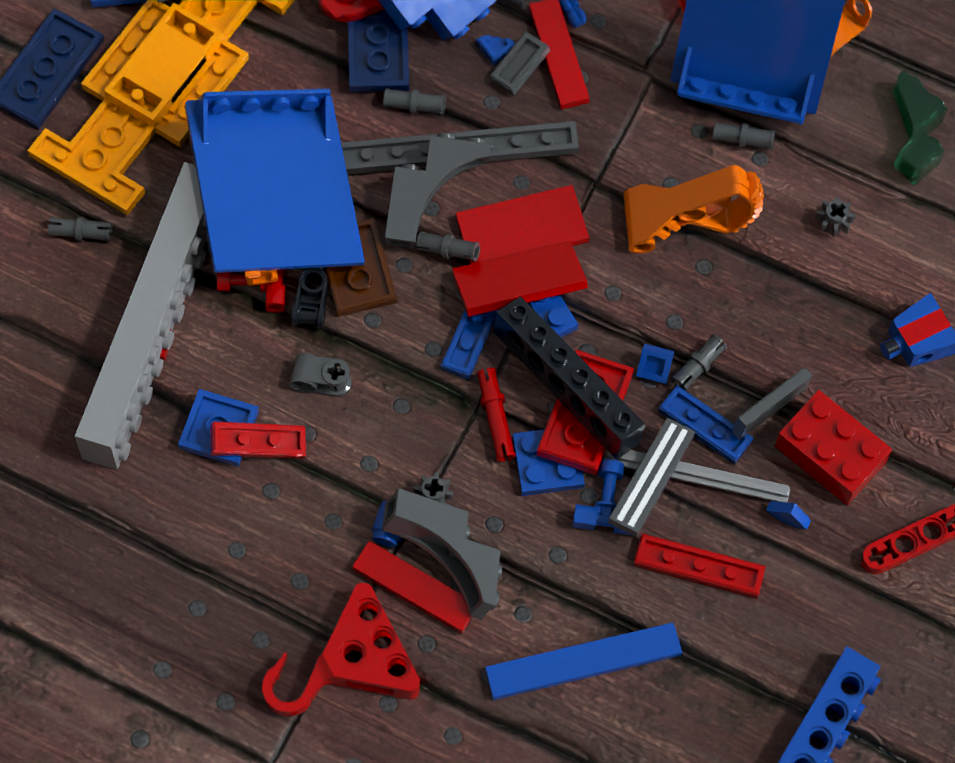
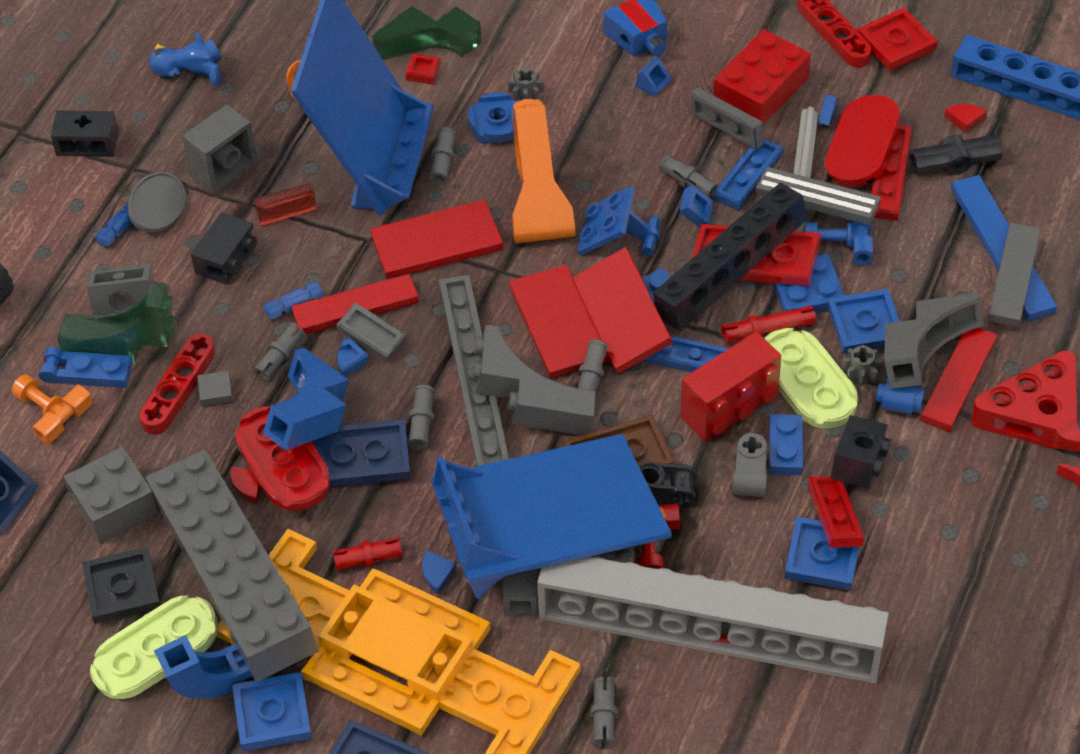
camera: 90 degrees left, 15 degrees down
(269, 53) = (367, 553): none -> red pin
(341, 471) = (860, 452): none -> black brick
(351, 414) = (785, 444): none -> blue plate
(406, 361) = (730, 386): none -> red brick
(430, 444) = (813, 380): none -> yellowish green tile
(492, 505) = (862, 318): none -> blue plate
(534, 658) = (1014, 274): none -> dark grey tile
(635, 274) = (613, 219): none -> blue plate
(636, 126) = (436, 239): none -> red tile
(712, 632) = (955, 154): none -> black piece
(737, 539) = (863, 140): none -> red tile
(774, 656) = (965, 115): none -> red tile
(788, 204) = (482, 118): none -> blue plate
(846, 344) = (653, 77): none -> blue slope
(873, 126) = (423, 69): none -> red tile
(893, 600) = (898, 38): none -> red plate

